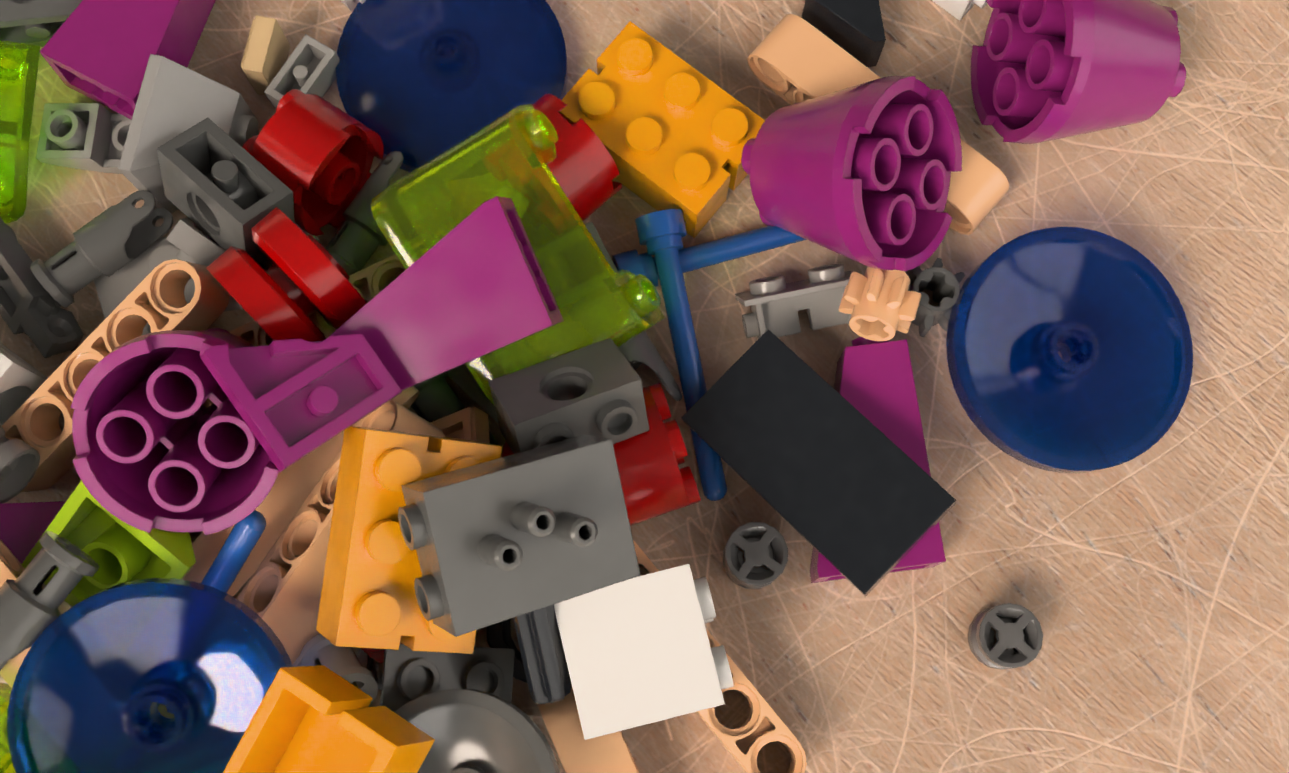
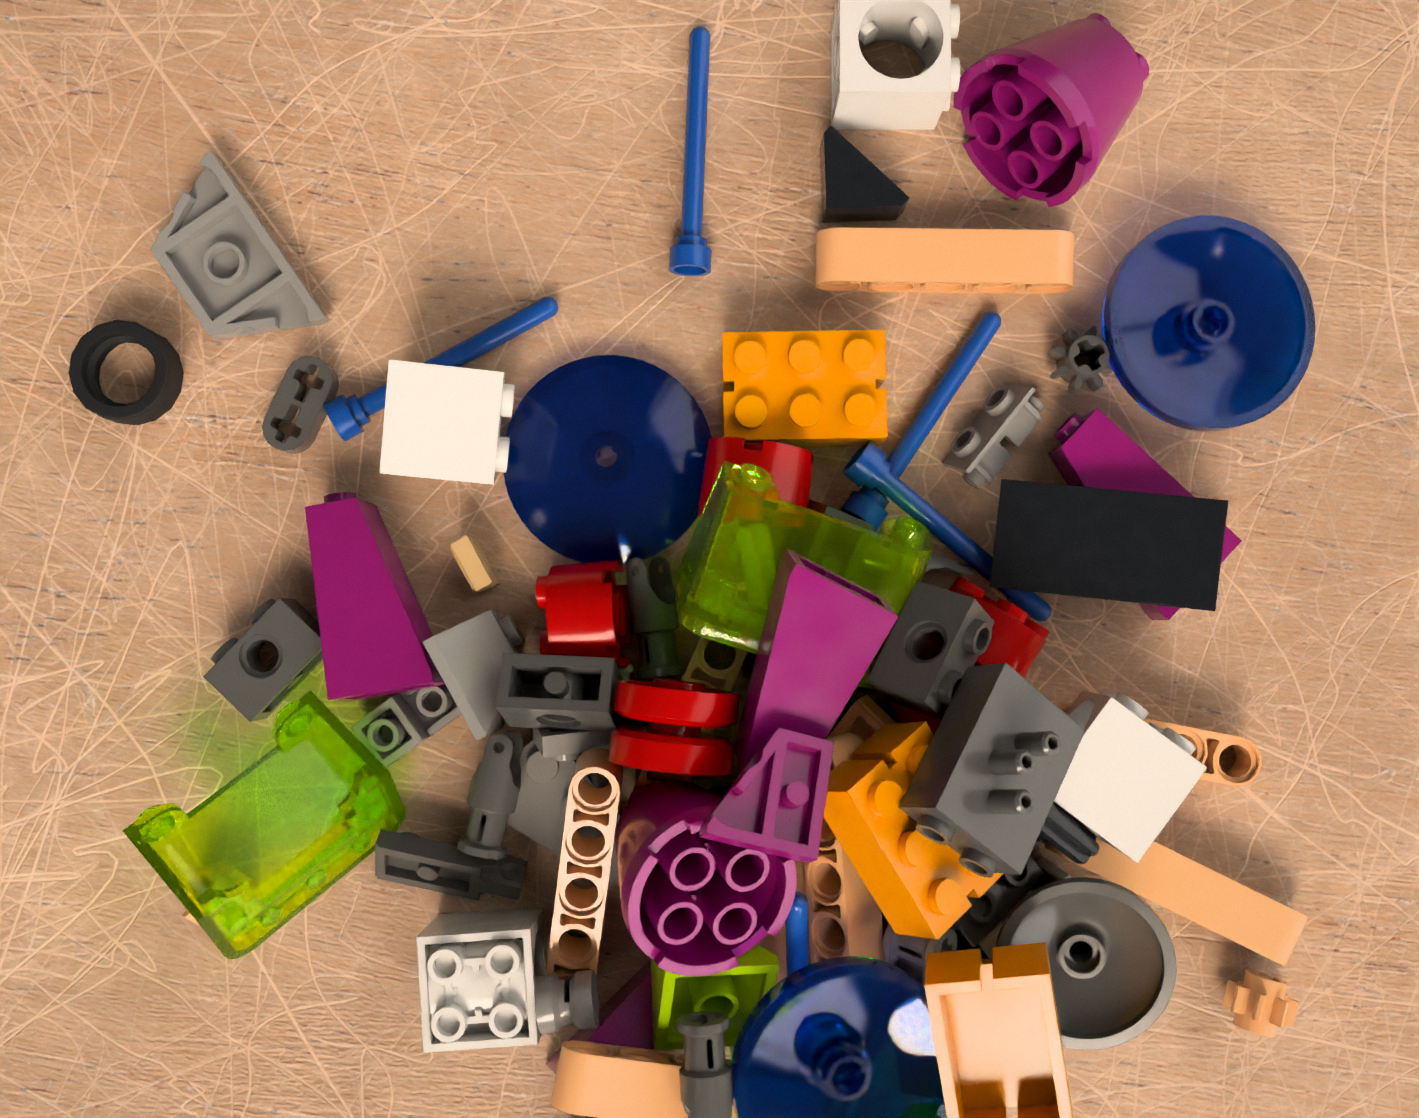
camera: 35 degrees left, 10 degrees up
(307, 69) = (515, 557): light grey piece -> none
(761, 546) = (1118, 635): flat silver wheel -> none
(860, 170) = (980, 321): magenta cone -> none
(879, 303) = (1061, 398): light nougat gear -> none
(1014, 629) = (1323, 552): flat silver wheel -> none

